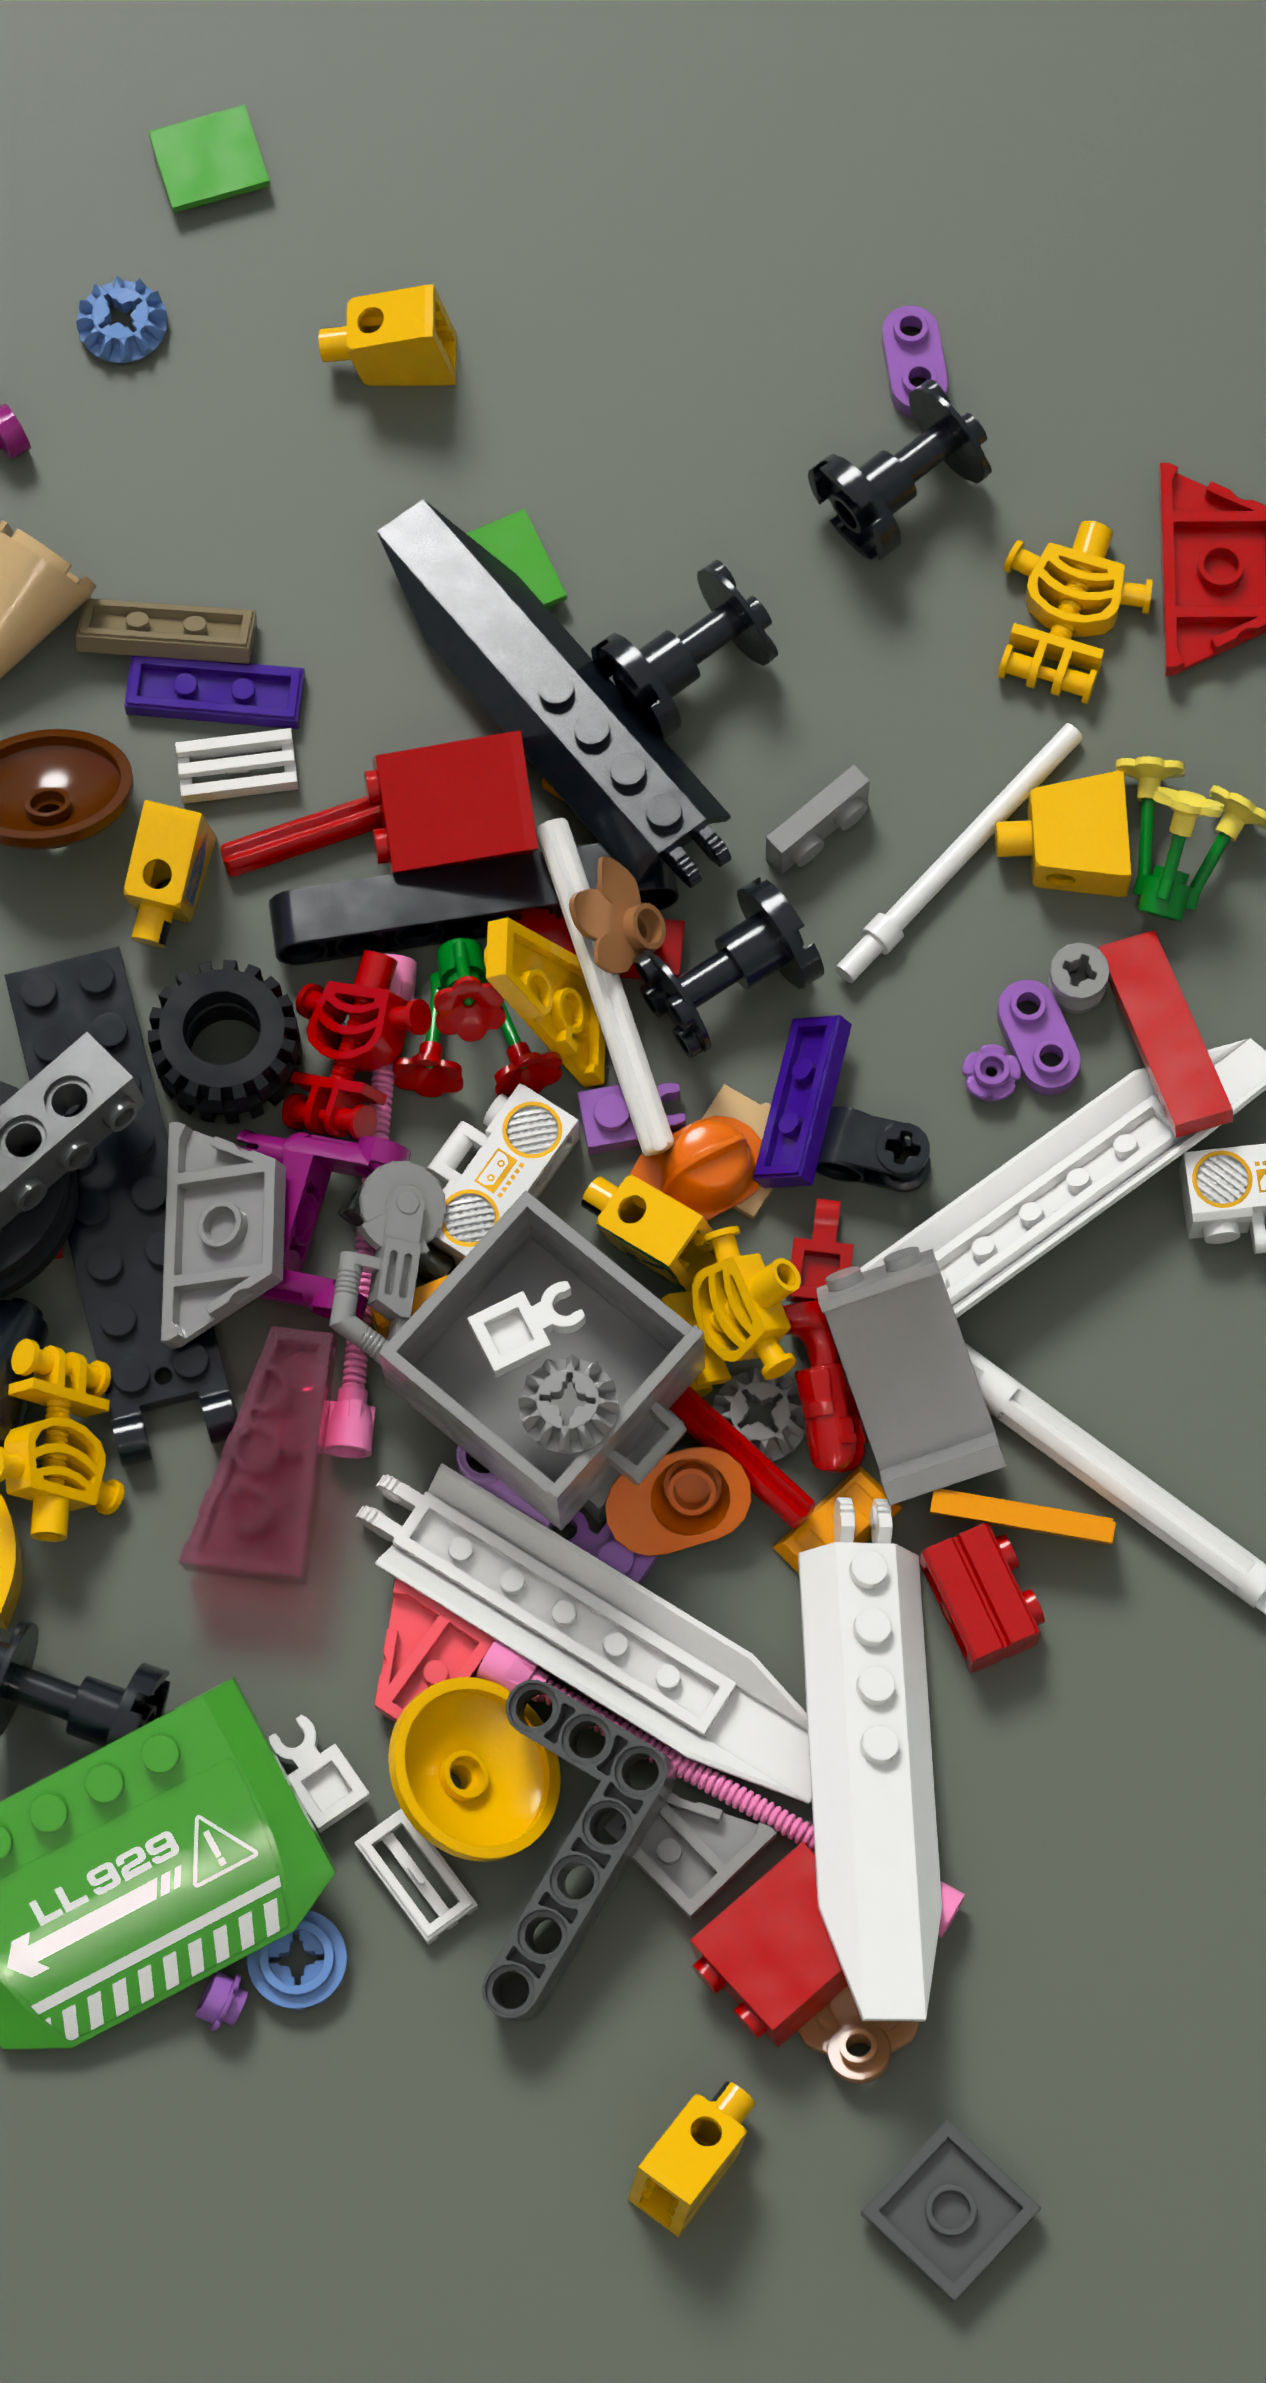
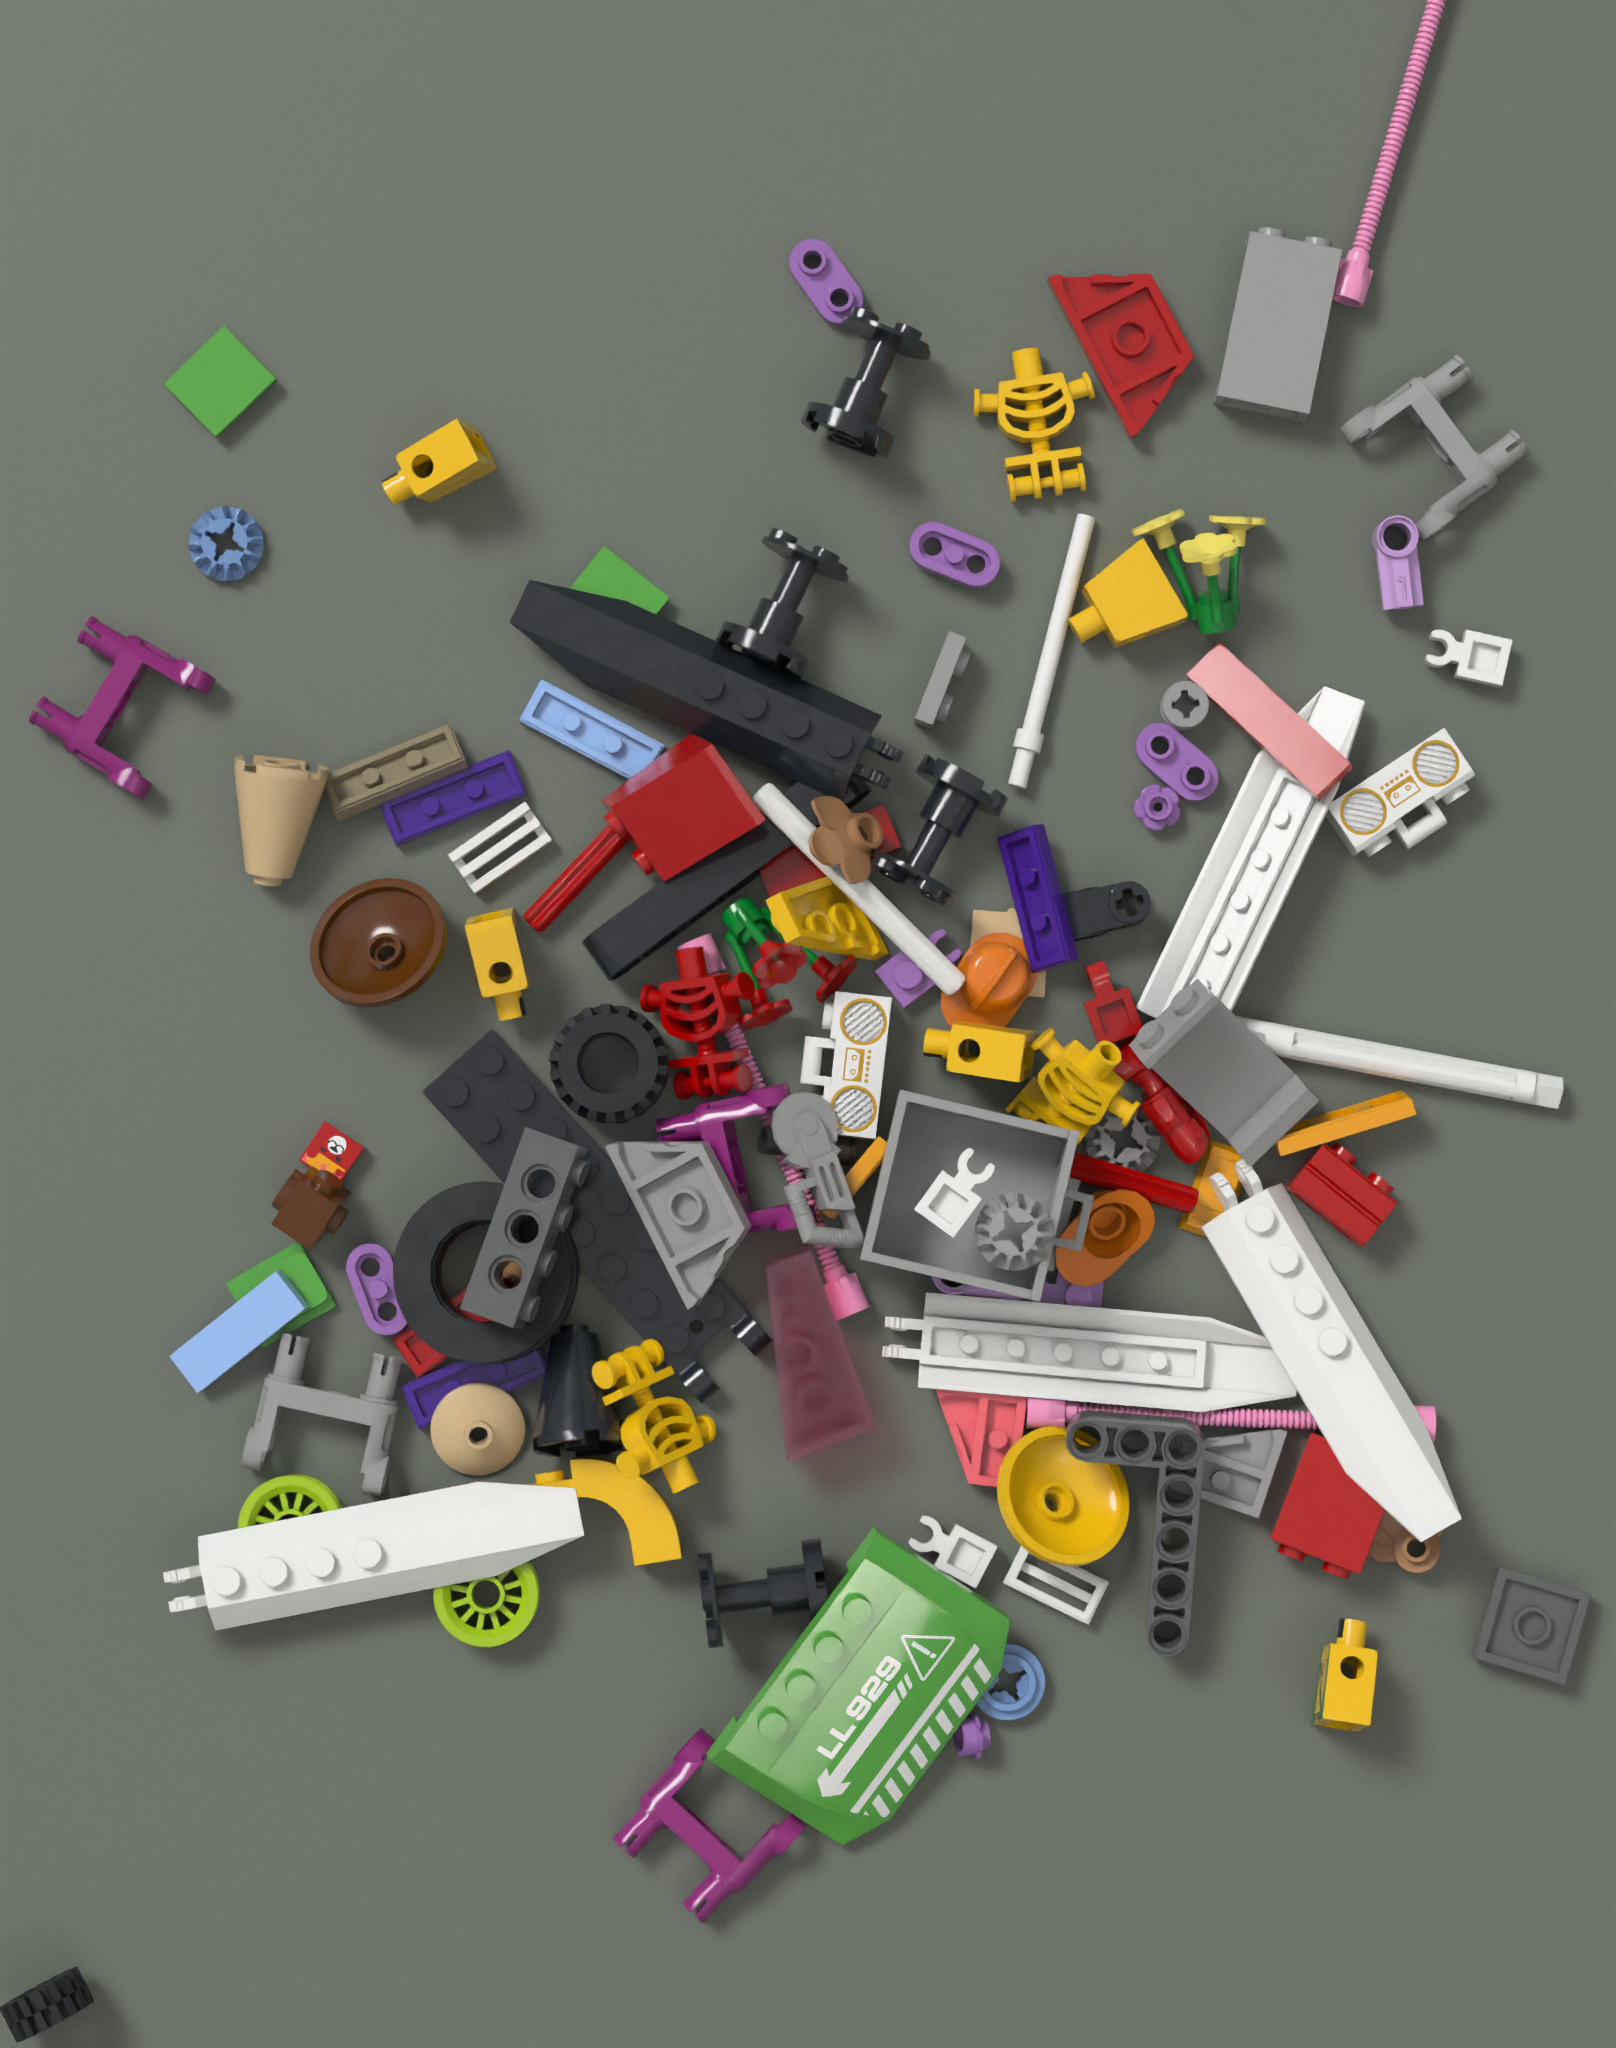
camera: 30 degrees left, 15 degrees up
(397, 686) = (589, 731): none -> light blue tile
(907, 701) = (955, 552): none -> medium lavender plate

